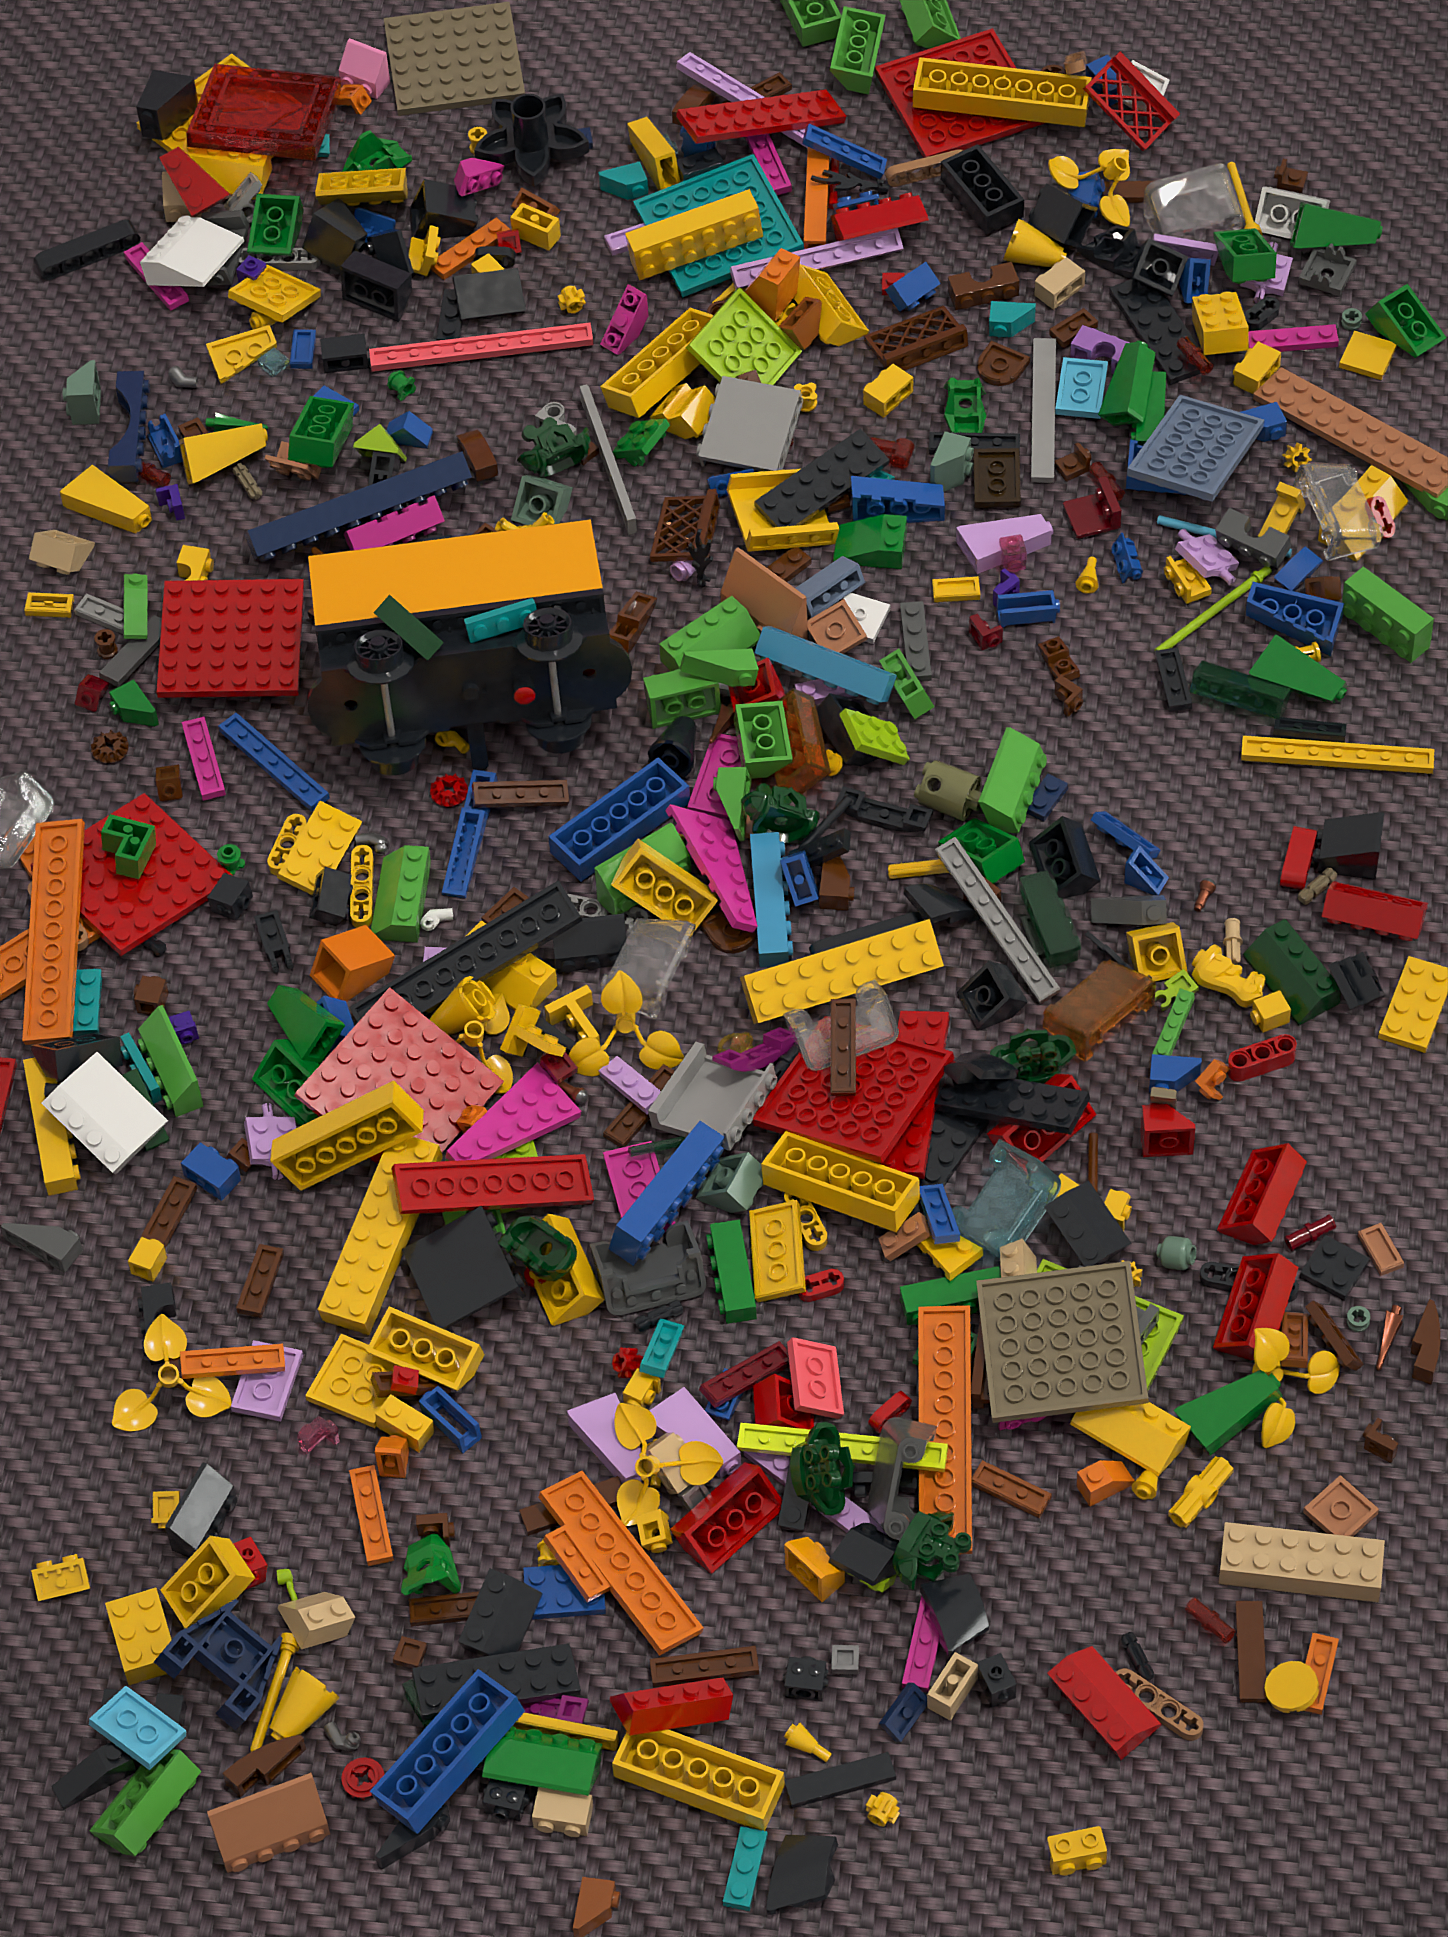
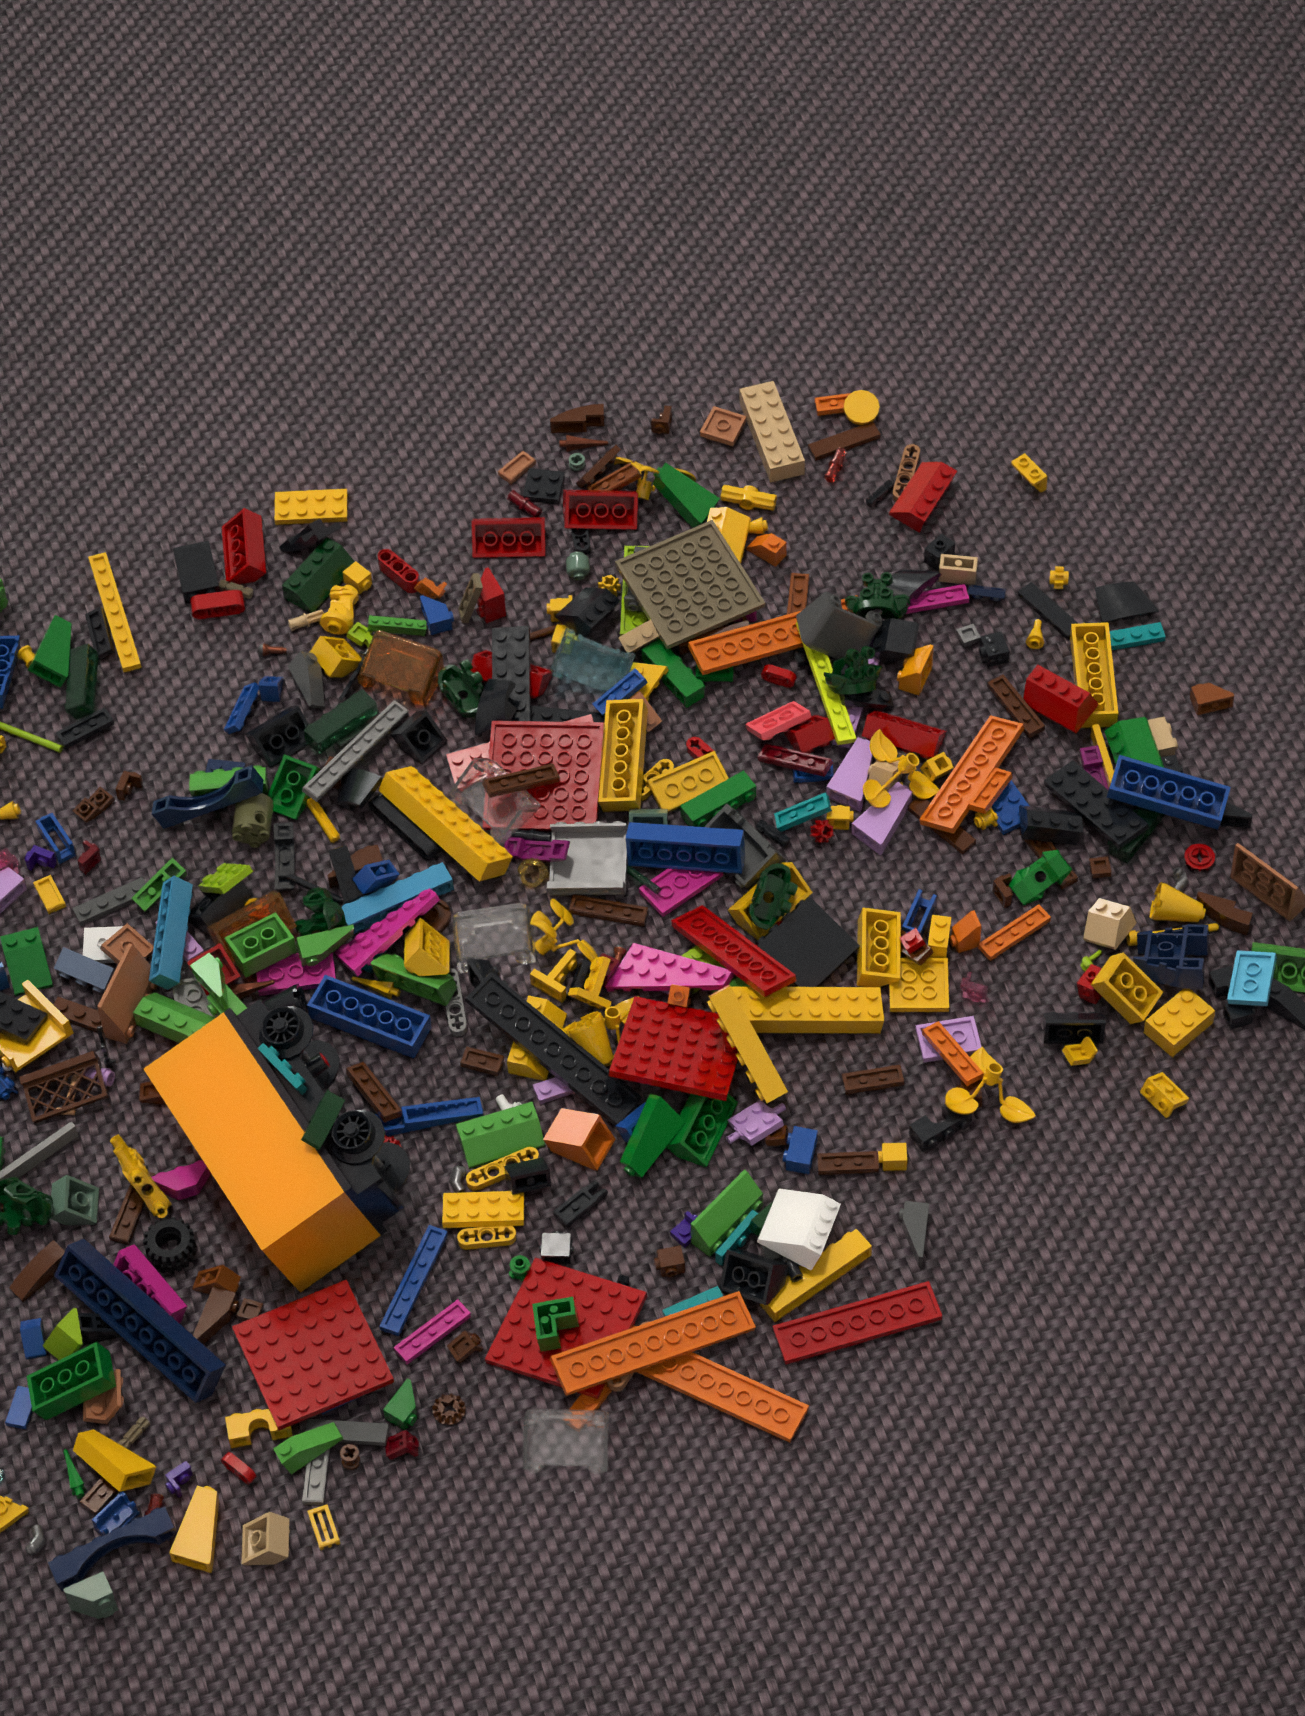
camera: 115 degrees left, 0 degrees up
(153, 552) = (238, 1468): none -> red beam
(630, 1083) = (598, 918): lavender plate -> none
(982, 753) = (175, 809): none -> dark blue arch

